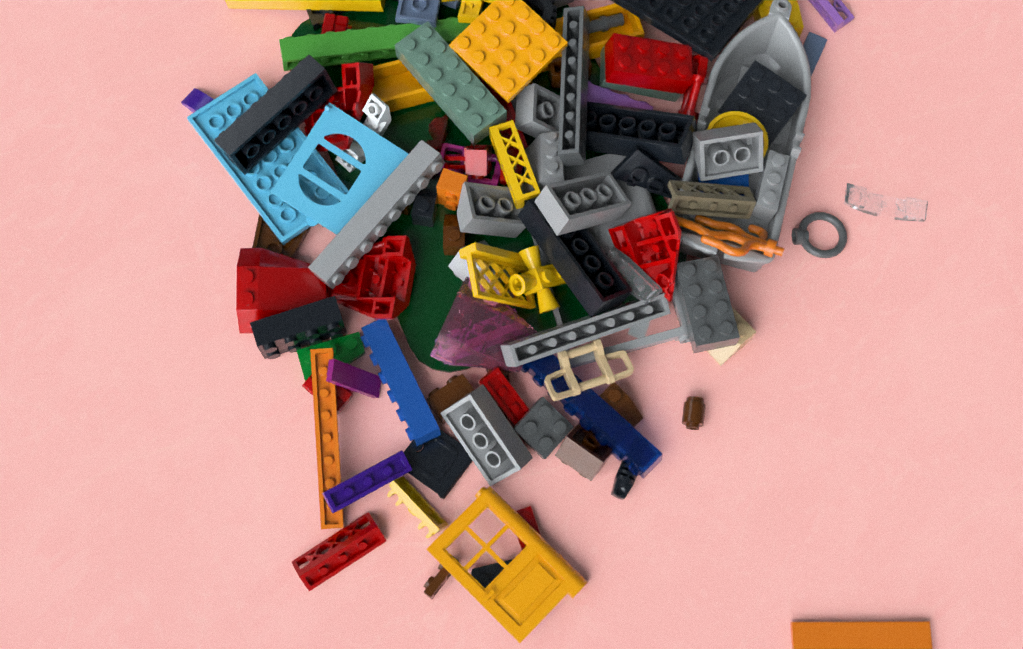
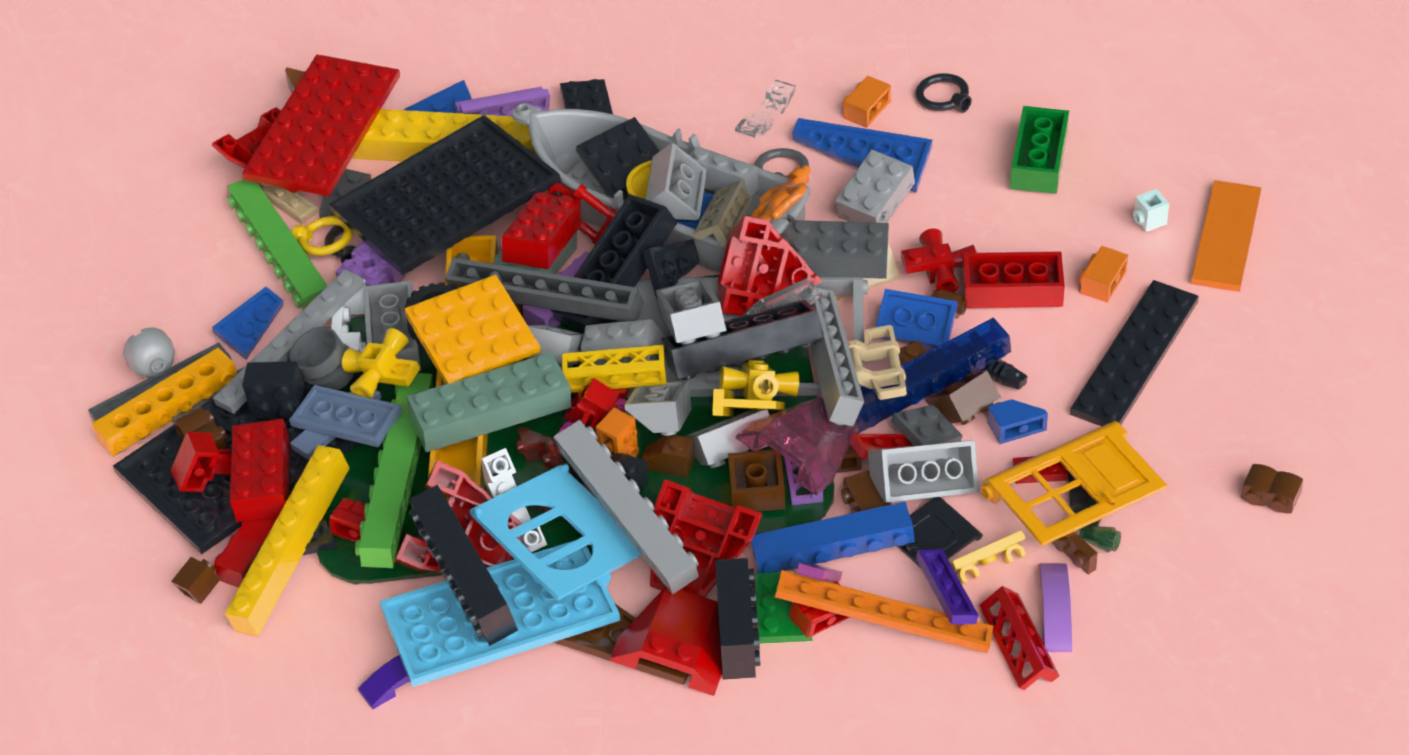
camera: 70 degrees left, 25 degrees down
(381, 573) = (1056, 607): none -> medium lavender slope
(434, 303) = (757, 480): none -> reddish brown brick
(459, 600) = (1102, 537): none -> clear green cone
(571, 497) = (1015, 420): none -> blue slope
(663, 390) = (917, 317): none -> blue plate
(684, 588) = (1134, 355): none -> black plate
(734, 462) = (1013, 279): none -> red brick
(738, 392) = (935, 260): none -> red brick
(771, 540) = (1103, 273): none -> orange brick
(806, 319) = (875, 189): none -> light grey piece
(845, 59) = (586, 95): none -> black plate
(861, 568) = (1151, 210): none -> light aqua brick
(866, 313) = (855, 143): none -> blue wing
(911, 451) = (1039, 149): none -> green brick
(928, 285) = (867, 101): none -> orange brick
(958, 366) = (960, 102): none -> black piece

